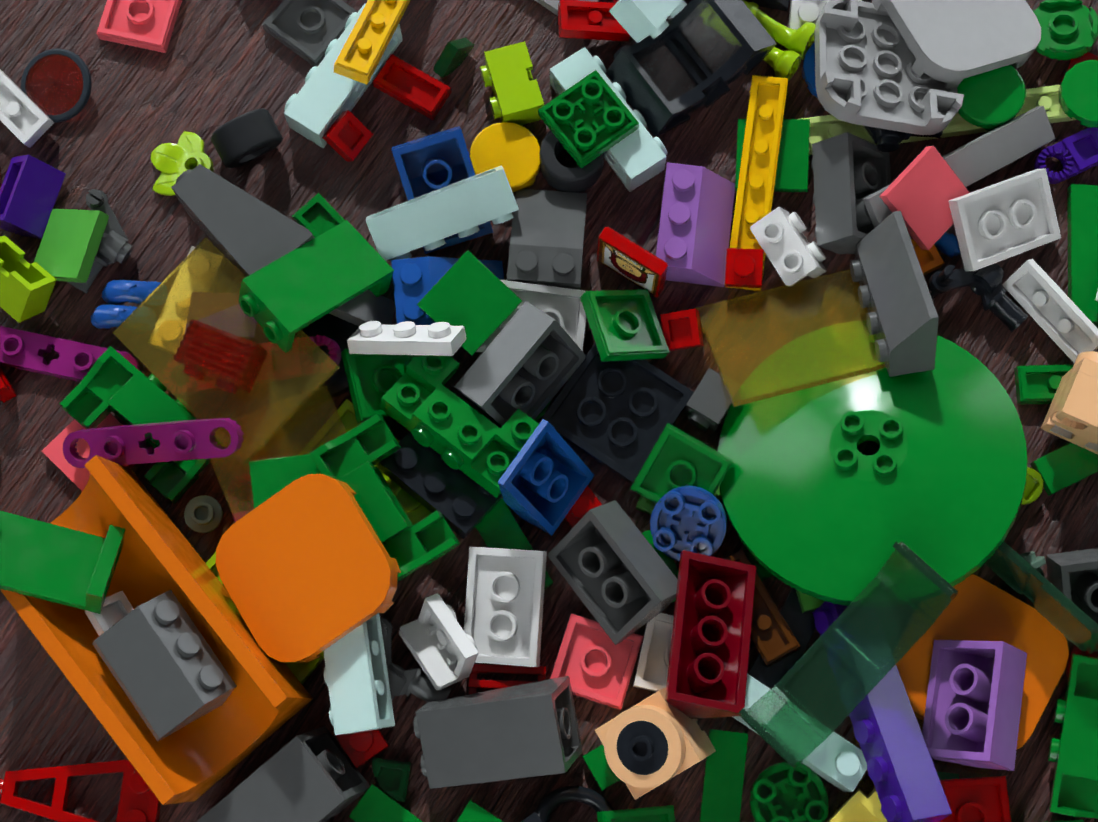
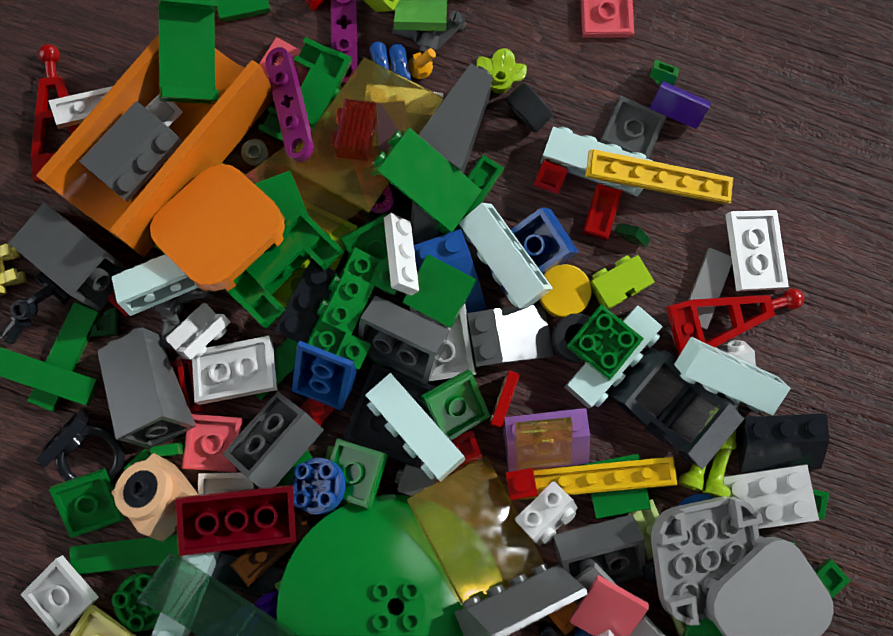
camera: 70 degrees right, 5 degrees up
(65, 735) = (75, 108): none -> white plate
(142, 264) = (420, 64): none -> light orange plate
(592, 721) = (168, 450): none -> green tile
(642, 377) = (415, 427): none -> light aqua brick
(699, 223) = (543, 443): none -> clear yellow tile

